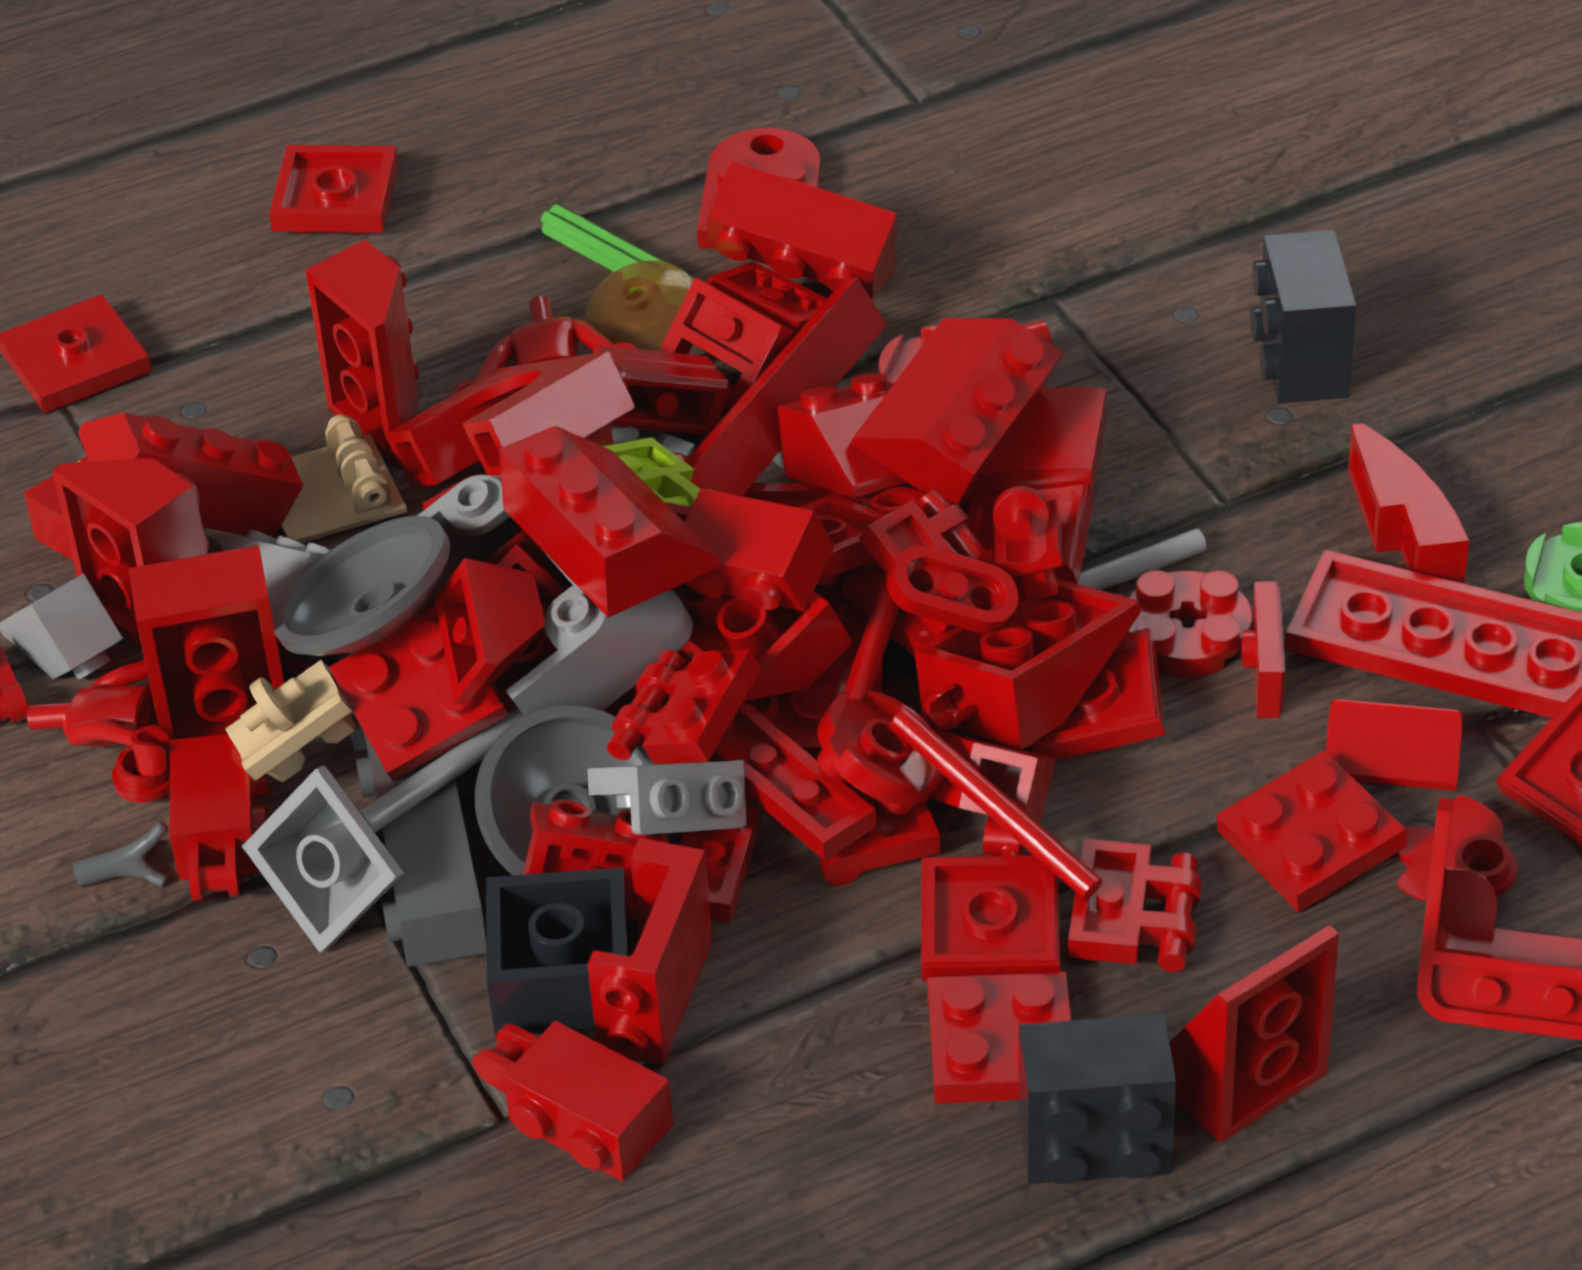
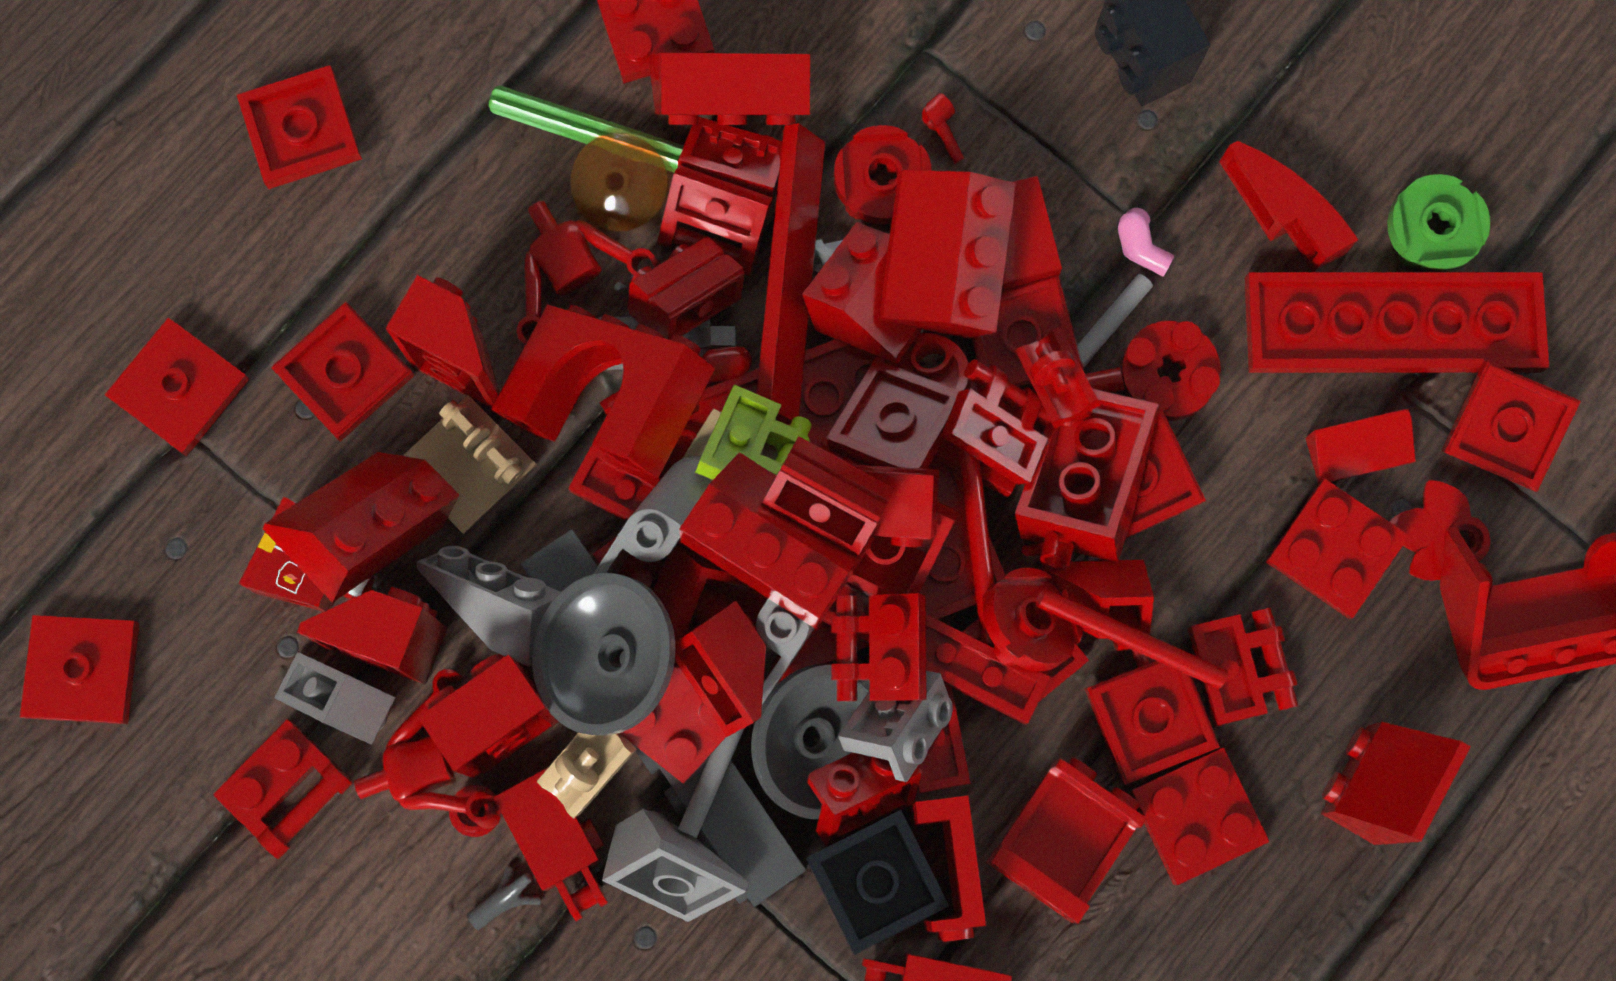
camera: 30 degrees left, 35 degrees up
(251, 379) = (343, 371): none -> red plate
(681, 482) = (828, 496): none -> red brick
(820, 1003) = (1067, 838): none -> red panel
(949, 587) = (1029, 465): red plate -> none
(1096, 1099) = (1308, 880): black brick -> none
(1206, 506) = (1137, 242): none -> bright pink arm
(1264, 650) = (1243, 387): plate -> none

